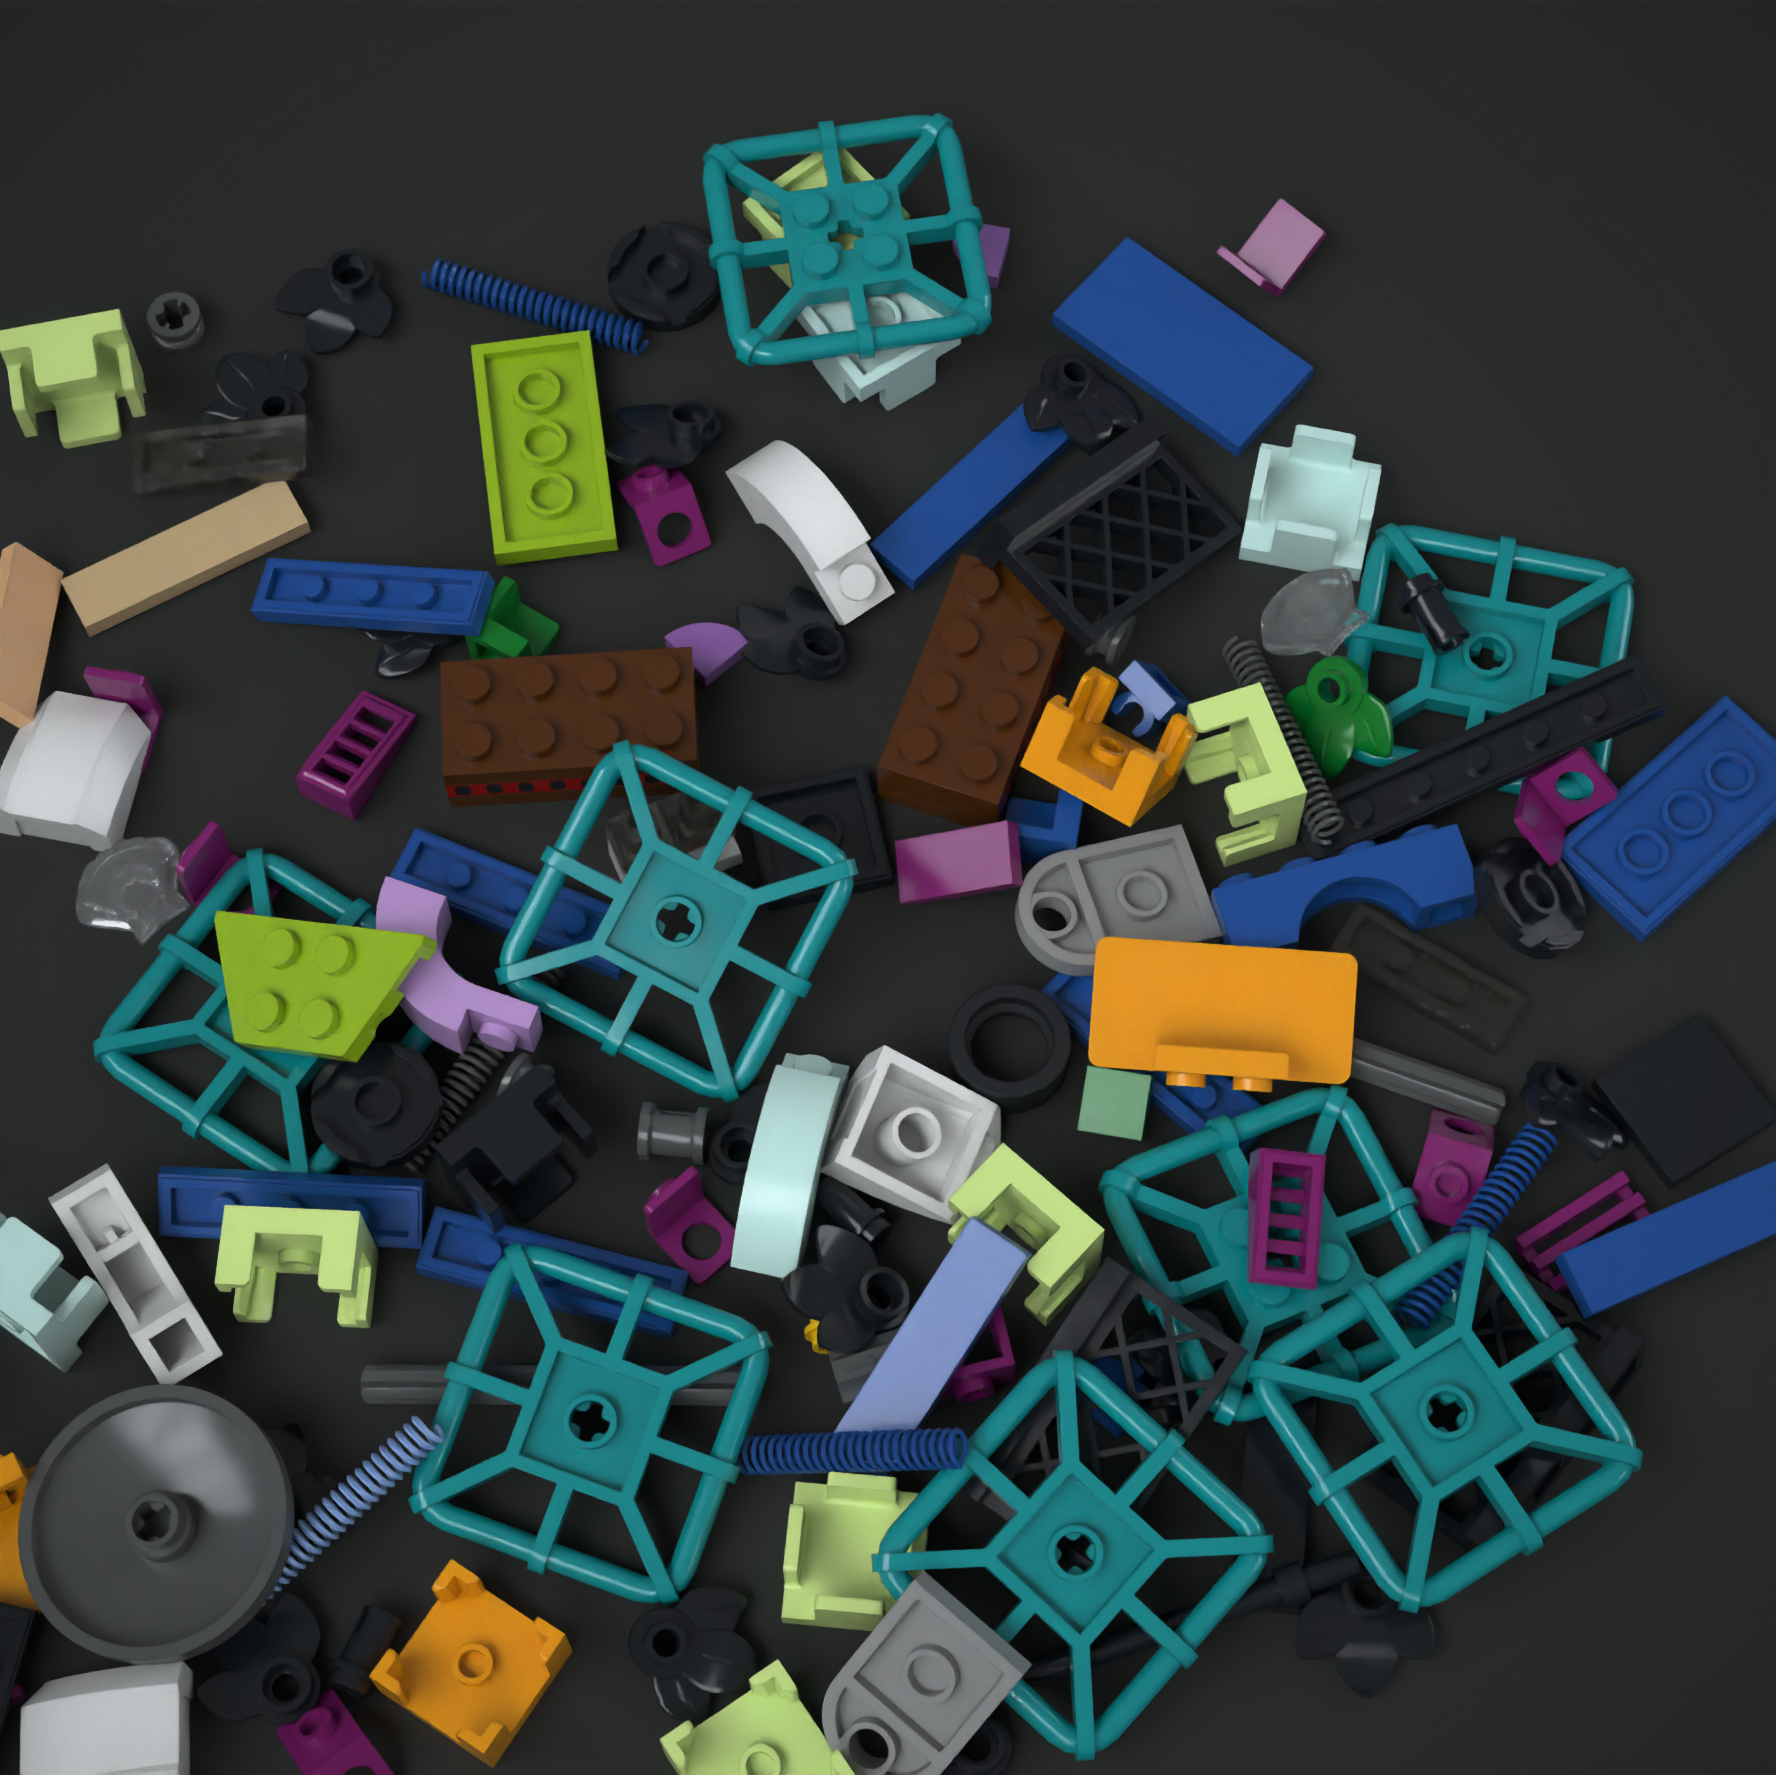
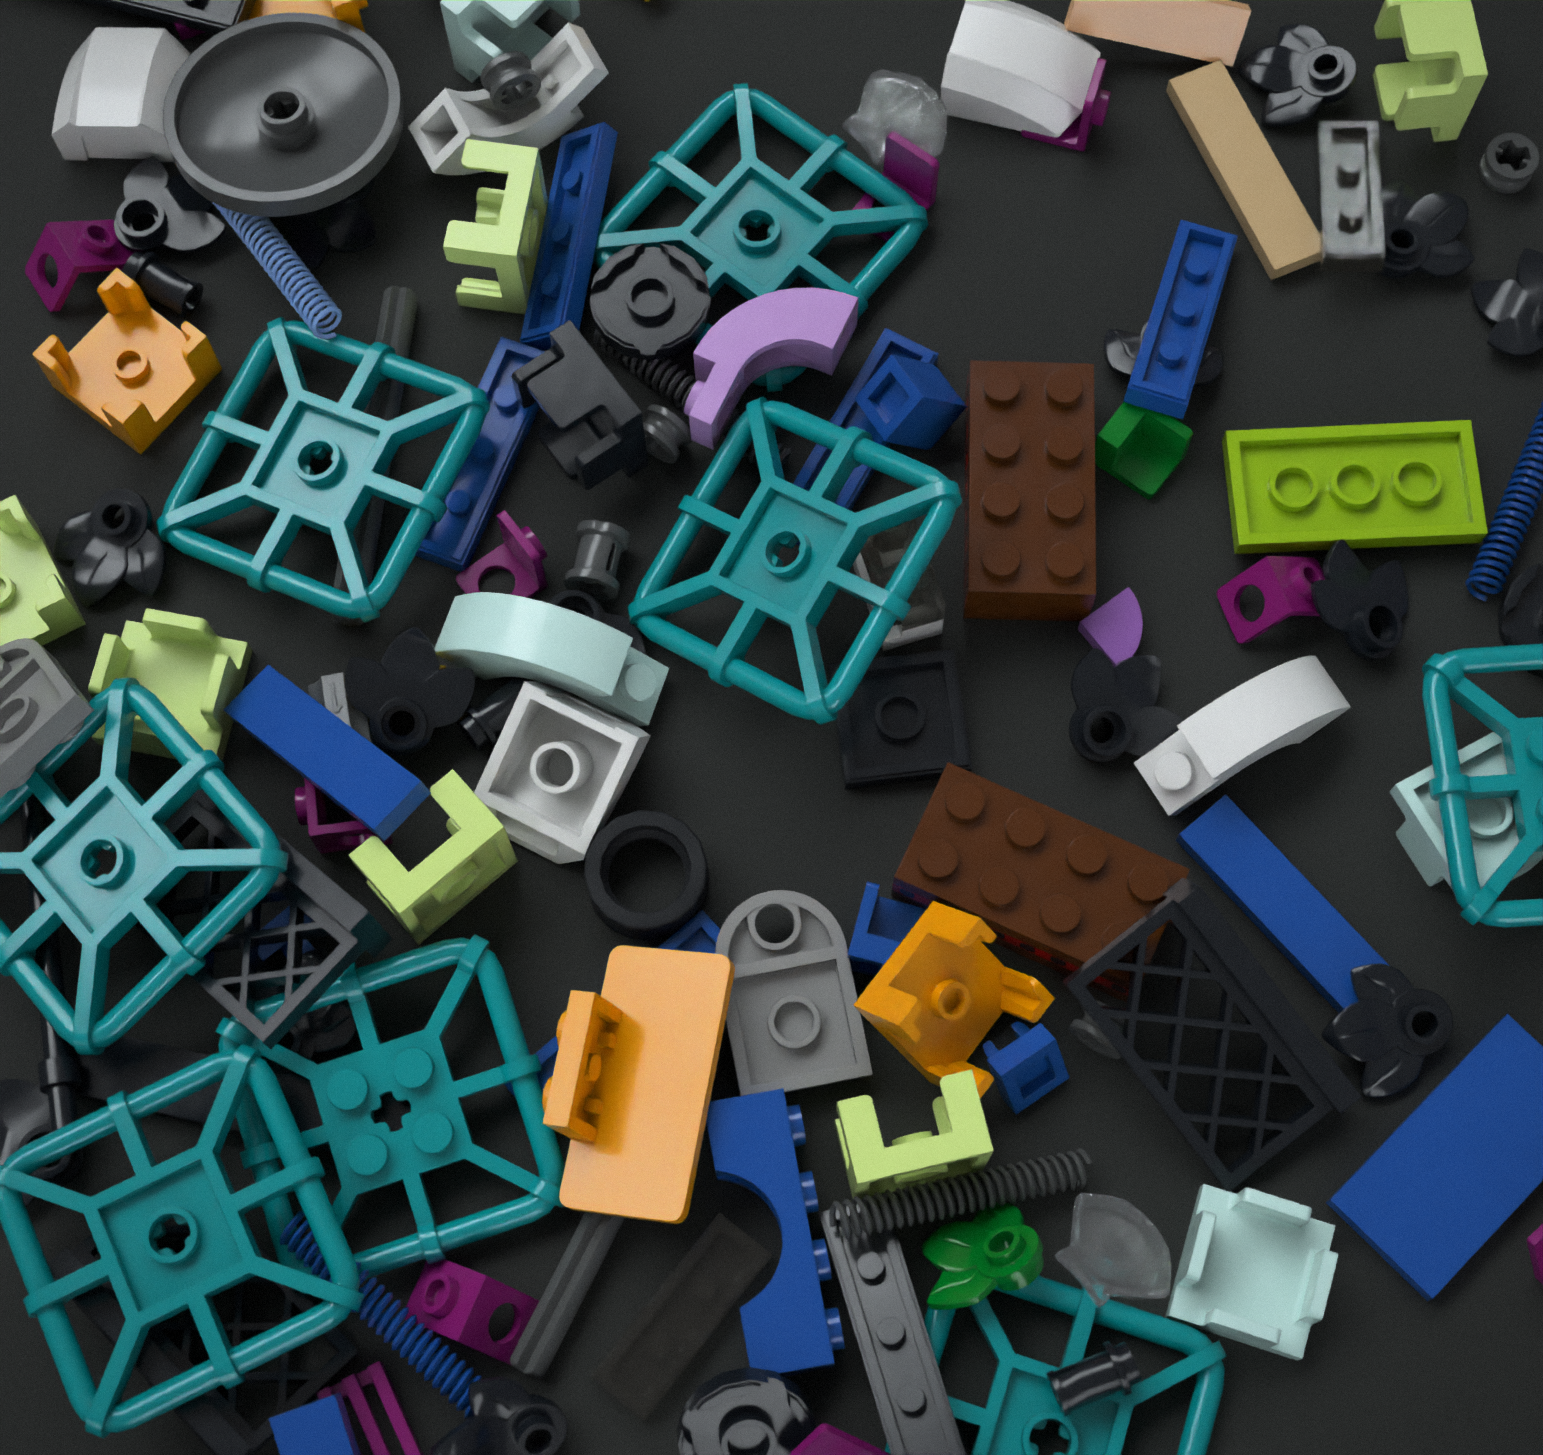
camera: 95 degrees right, 5 degrees up
(73, 518) = (1293, 77): none -> black plate
(117, 1268) = (510, 80): none -> dark grey bush
(312, 983) = (763, 238): lime wing -> none
(352, 796) = (1016, 278): magenta slope -> none
(481, 842) = (910, 402): none -> blue panel
(907, 1449) = (231, 670): blue piece -> none
(959, 863) = (843, 841): magenta tile -> none
(1116, 1103) = (571, 966): tile -> none
(1311, 1172) = (464, 1117): magenta slope -> none

